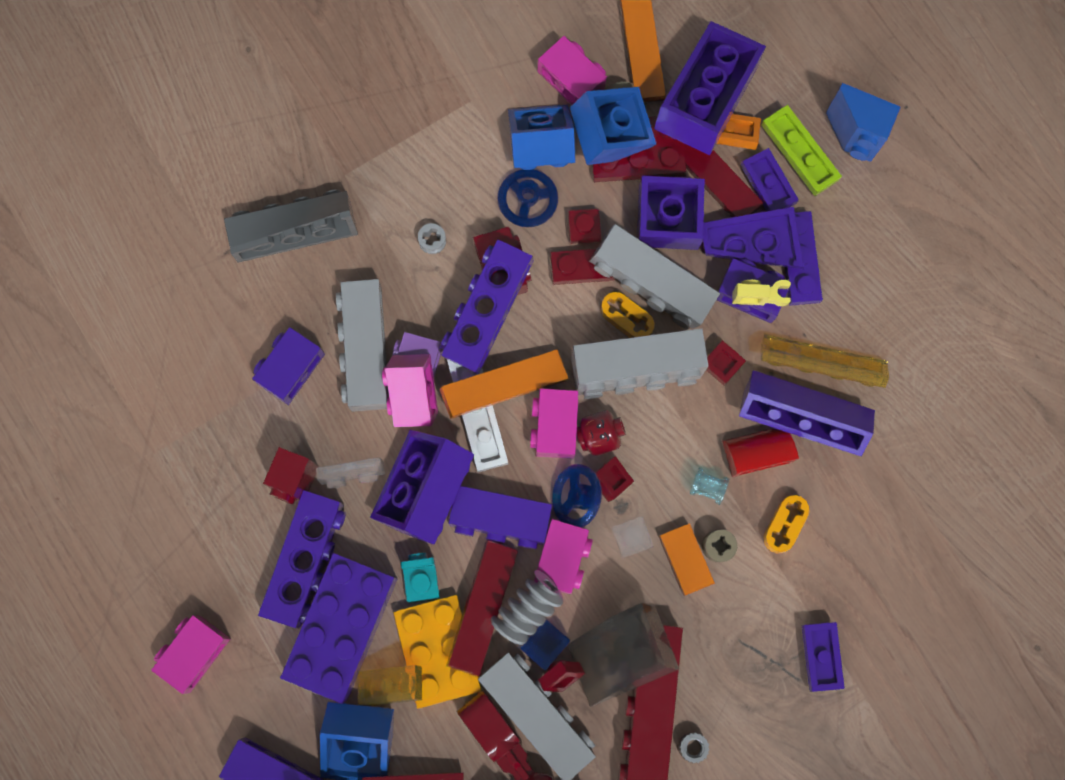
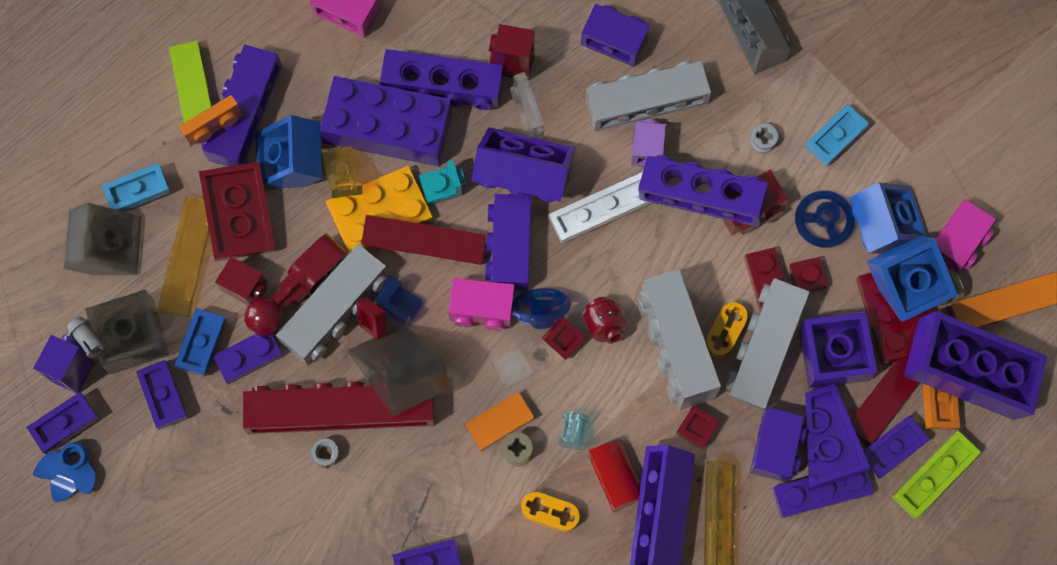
camera: 85 degrees right, 5 degrees down
(410, 390) = (611, 139): brick -> none
(443, 166) = (836, 135): none -> dark azure plate
(503, 383) = (634, 222): orange tile -> none
(530, 610) = (427, 274): light grey piece -> none
(556, 423) = (607, 277): dark pink brick -> none
(753, 293) = (769, 435): light yellow plate -> none
(861, 121) = (978, 530): blue slope -> none

